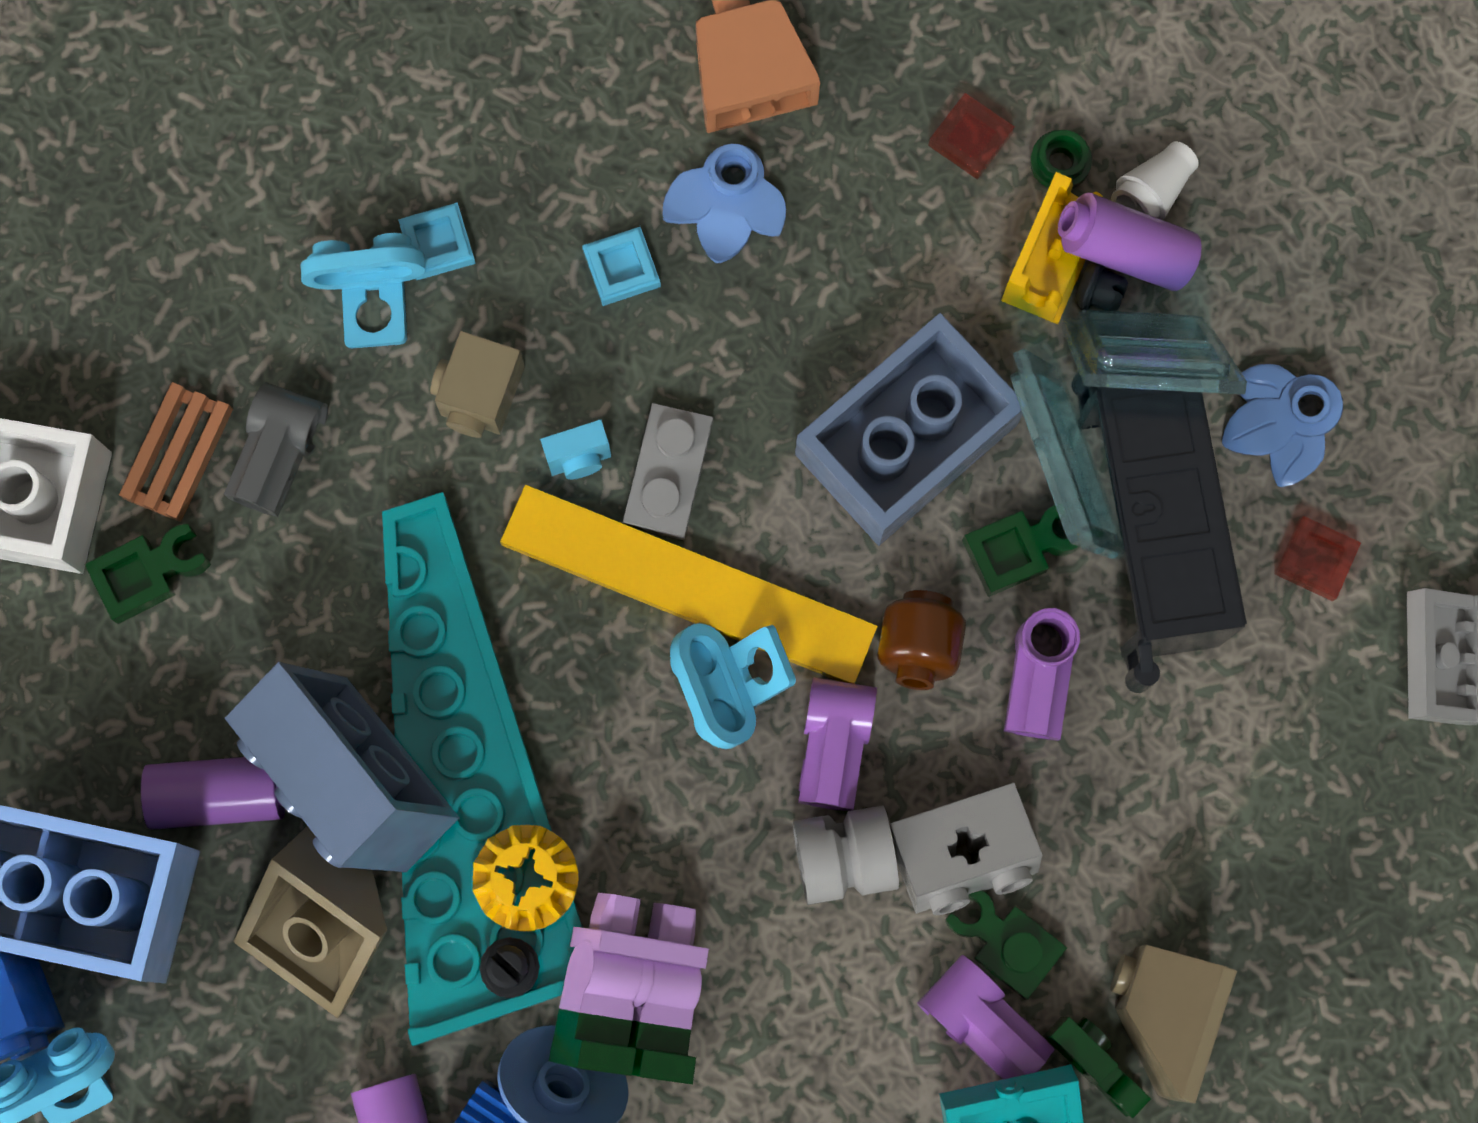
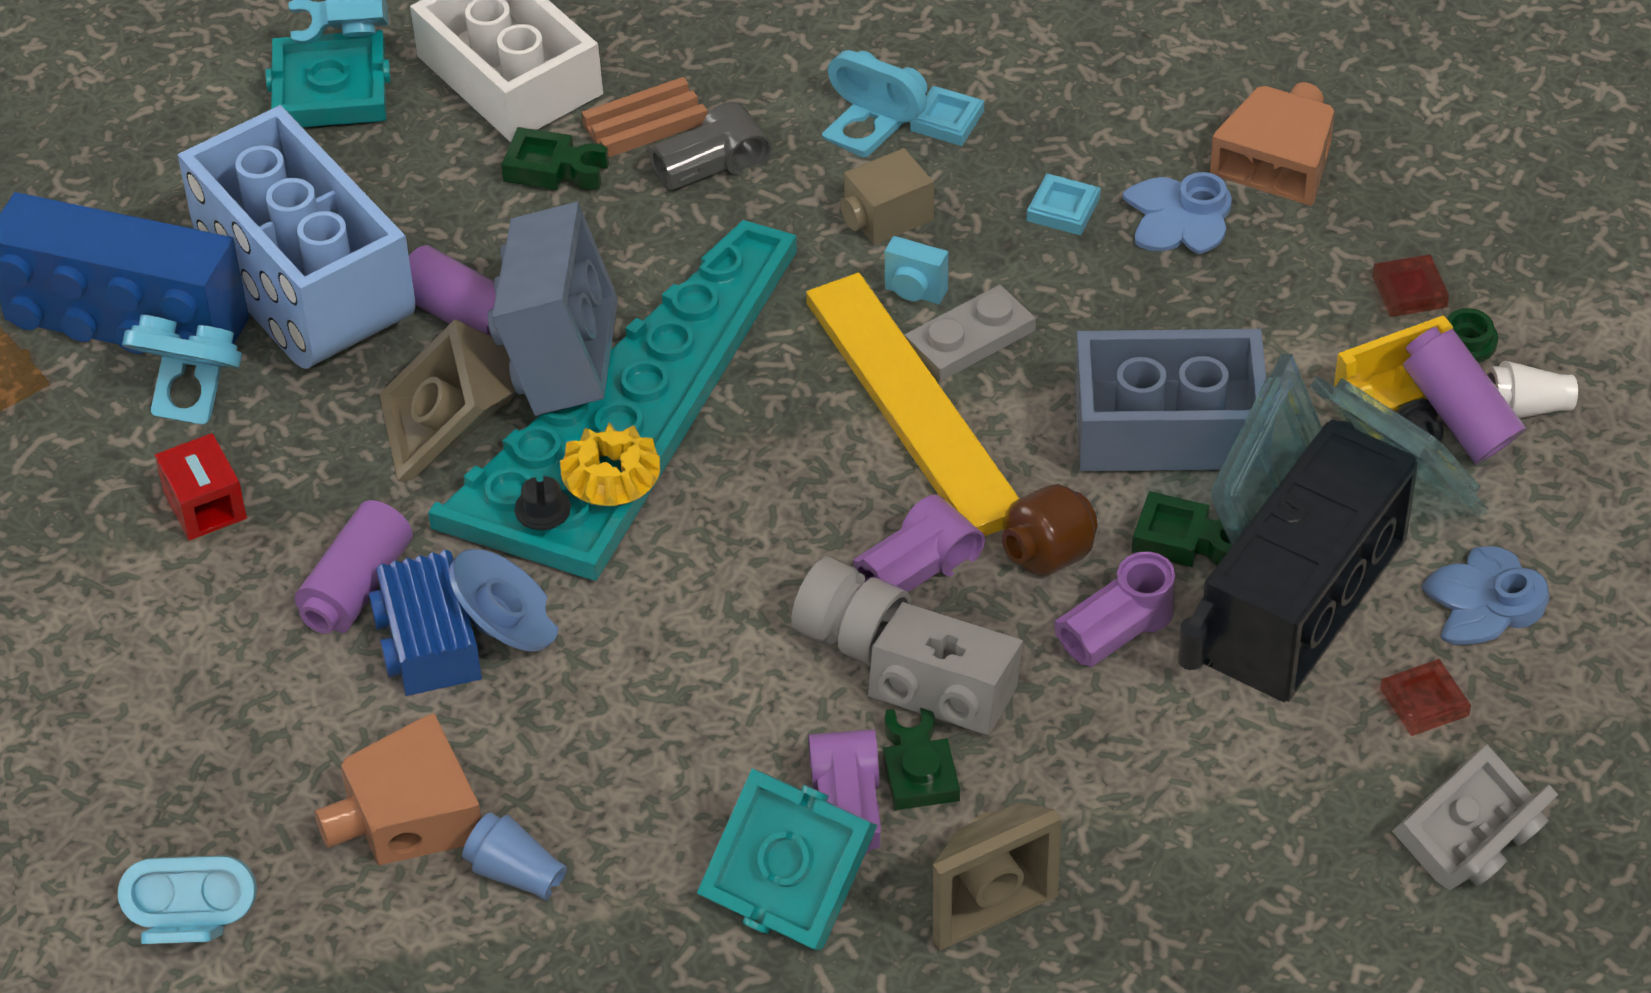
camera: 45 degrees right, 30 degrees down
(630, 995) = (625, 560): lavender hips -> none
(720, 683) = (872, 461): medium azure bracket -> none
(1086, 1050) = (904, 856): dark green plate -> none

